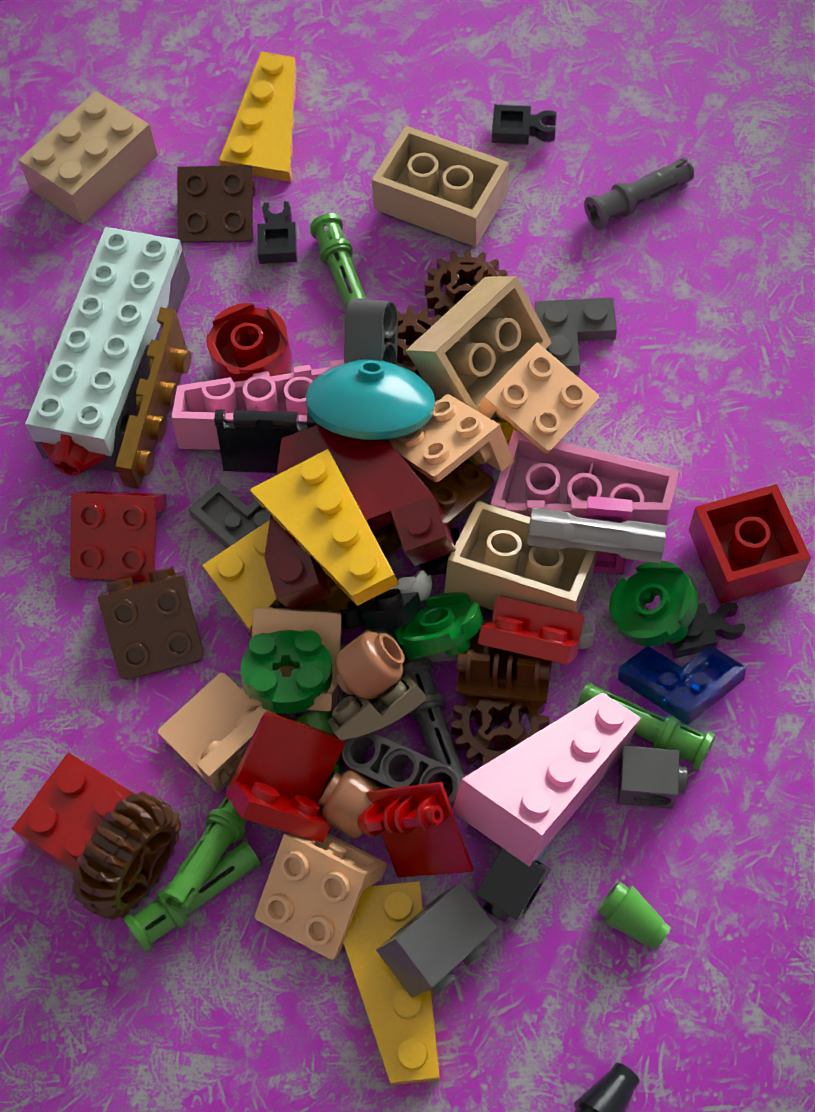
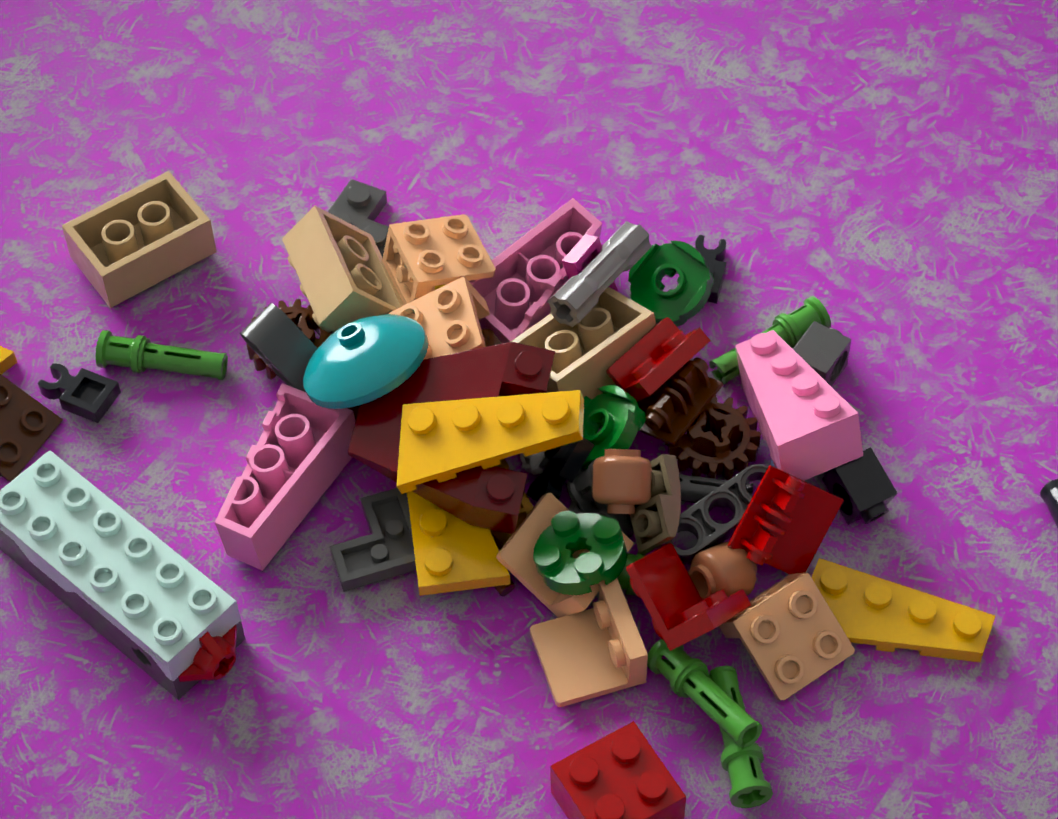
camera: 65 degrees left, 10 degrees down
(114, 534) = (324, 656): red bracket -> none
(126, 855) = (688, 750): reddish brown gear -> none
(150, 623) = (440, 661): reddish brown bracket -> none
(153, 400) = (159, 517): pearl gold wing -> none
(248, 342) = (202, 458): red brick -> none
(255, 438) = (321, 483): black piece -> none
(437, 941) = (885, 556): dark grey brick -> none
(459, 276) = (242, 276): reddish brown gear -> none
(515, 124) = (112, 161): black plate -> none
(625, 197) = (255, 124): dark grey pin -> none
(632, 915) = (925, 425): bright green cone -> none
(682, 690) = (757, 299): clear blue plate -> none
(748, 543) = (659, 193): red brick -> none

